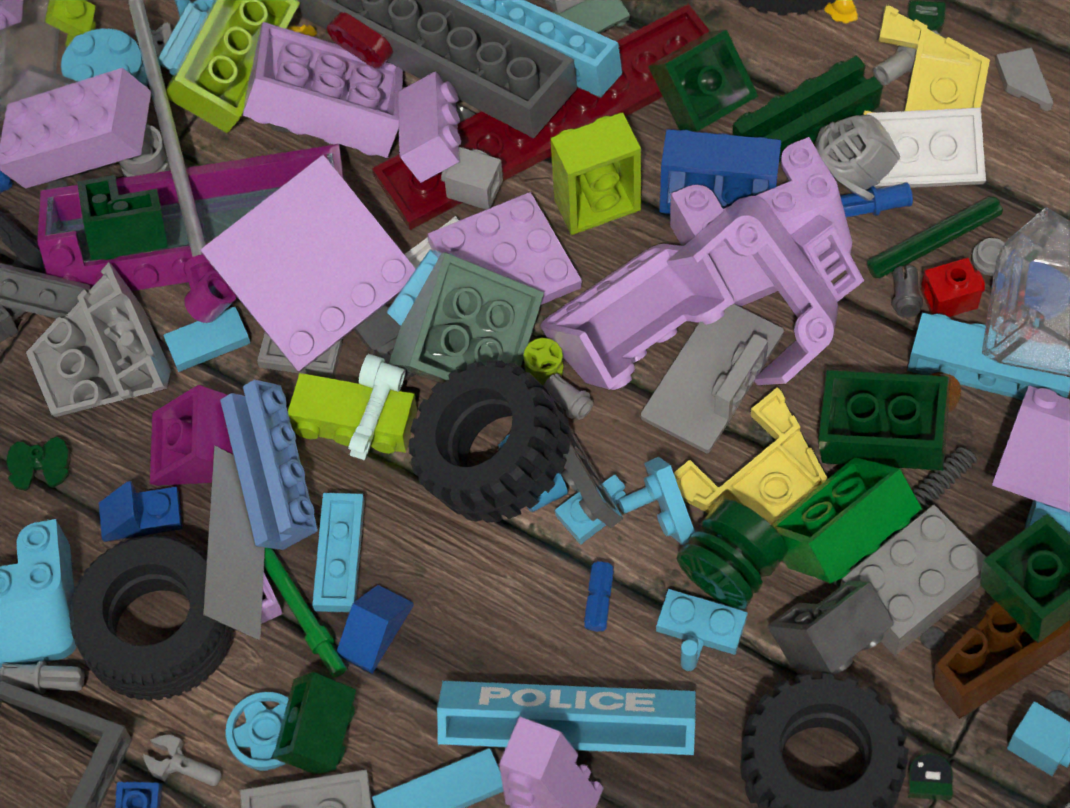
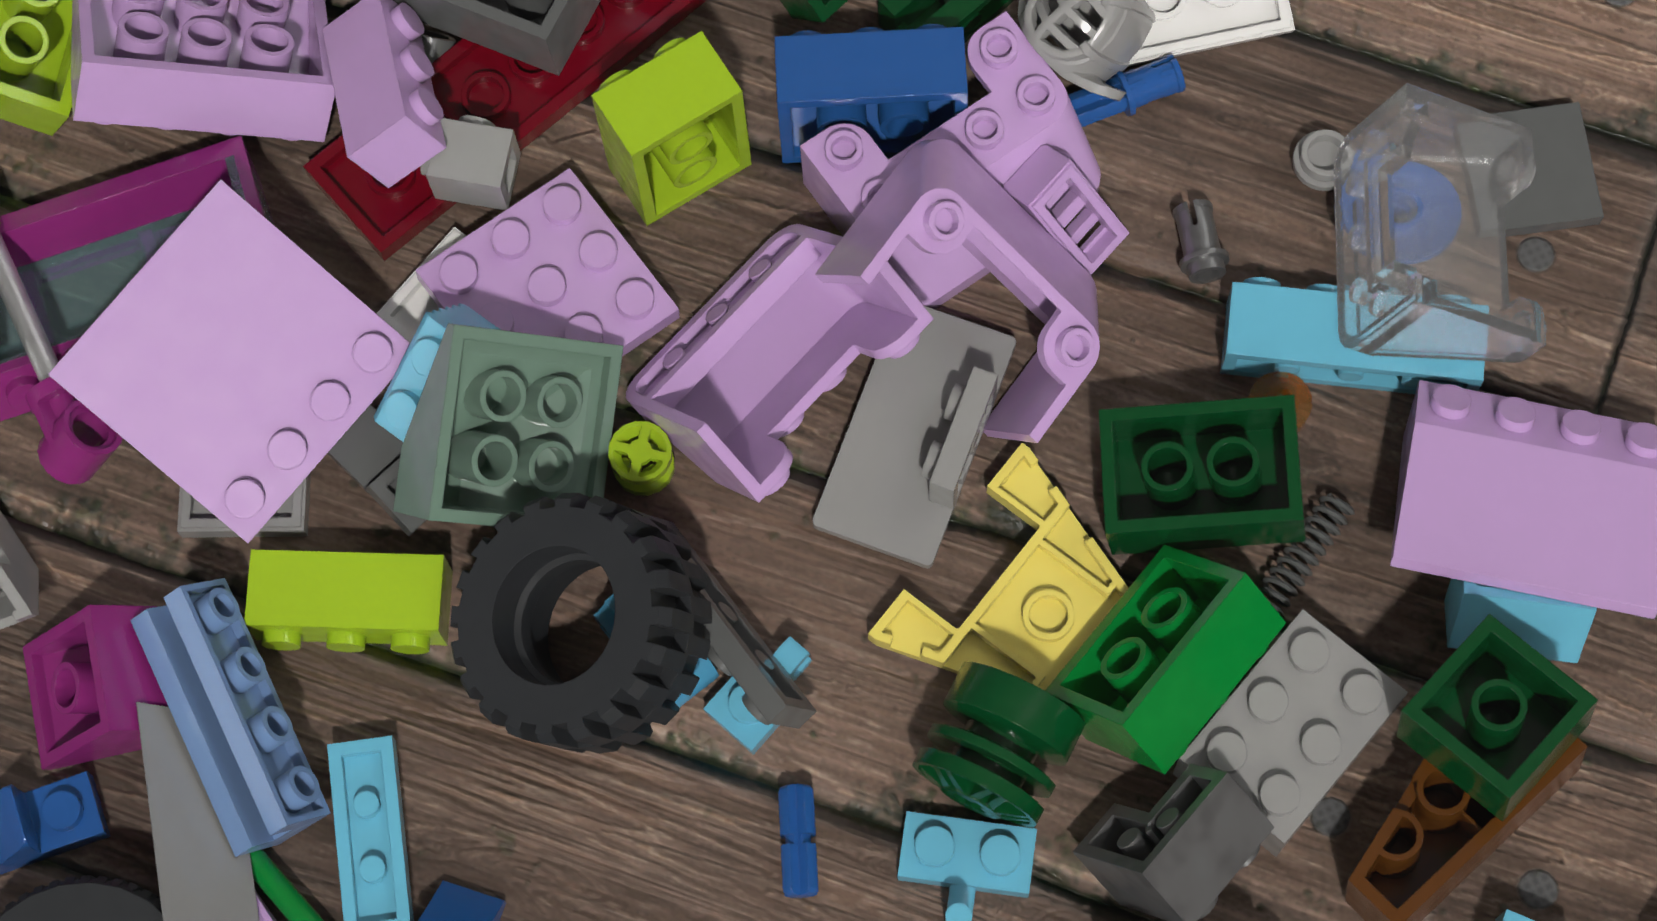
camera: 10 degrees left, 10 degrees up
(205, 341) = (78, 514): medium azure tile -> none
(382, 379) = (388, 541): light aqua brick -> none
(572, 400) = (691, 511): light grey pin -> none
(663, 487) = (872, 652): medium azure plate -> none
(934, 237) = (1229, 140): dark green axle -> none
(952, 288) = (1272, 226): red brick -> none

